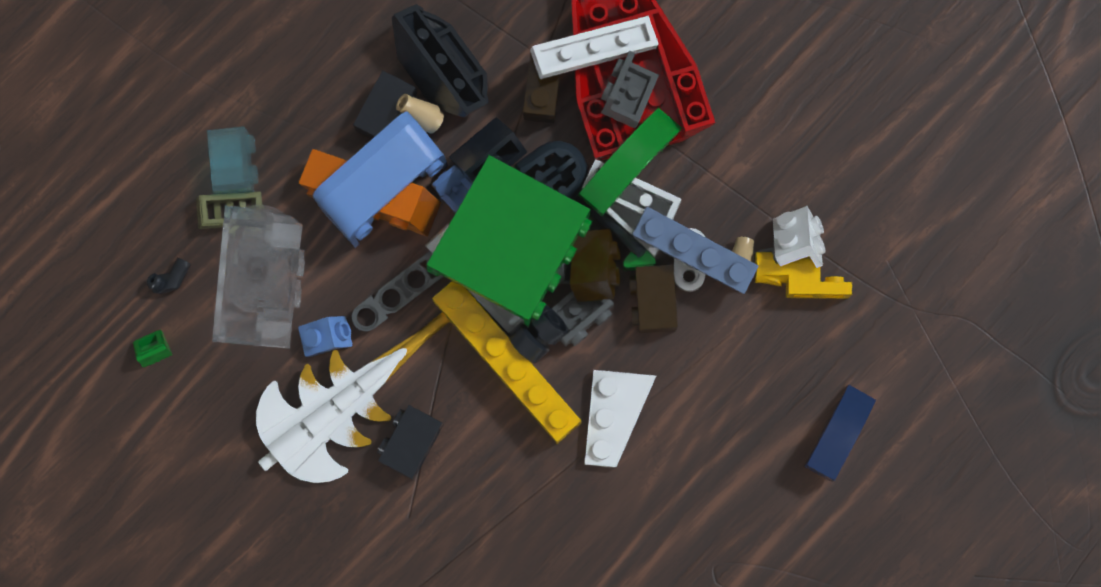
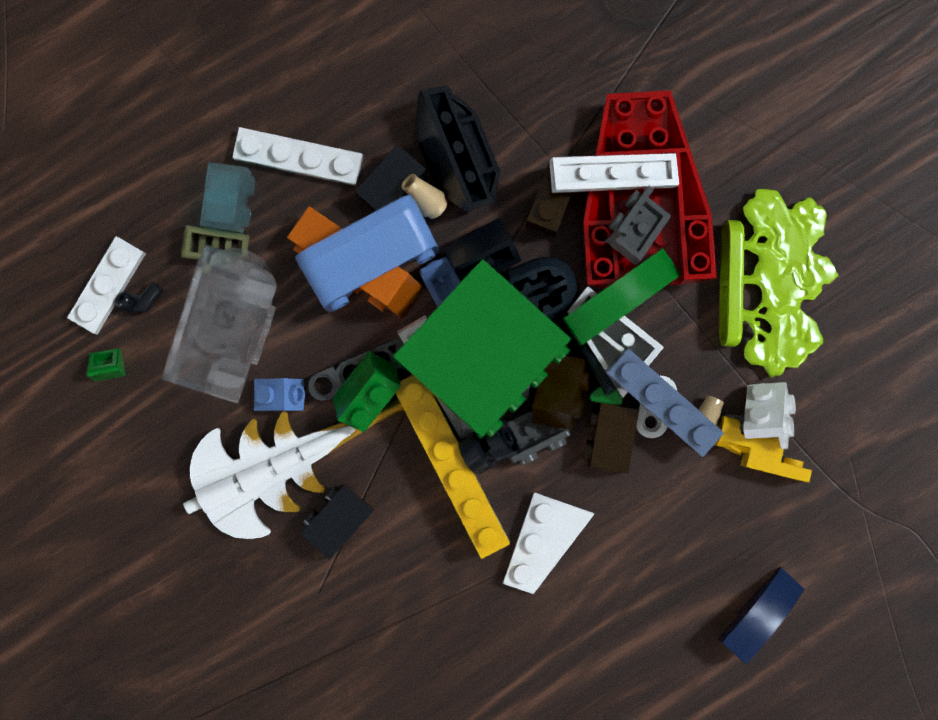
camera: 10 degrees right, 5 degrees up
(133, 271) = (105, 284): none -> white plate
(289, 106) = (297, 156): none -> white plate
(409, 310) = (366, 392): none -> green brick
(782, 104) = (785, 273): none -> lime plant

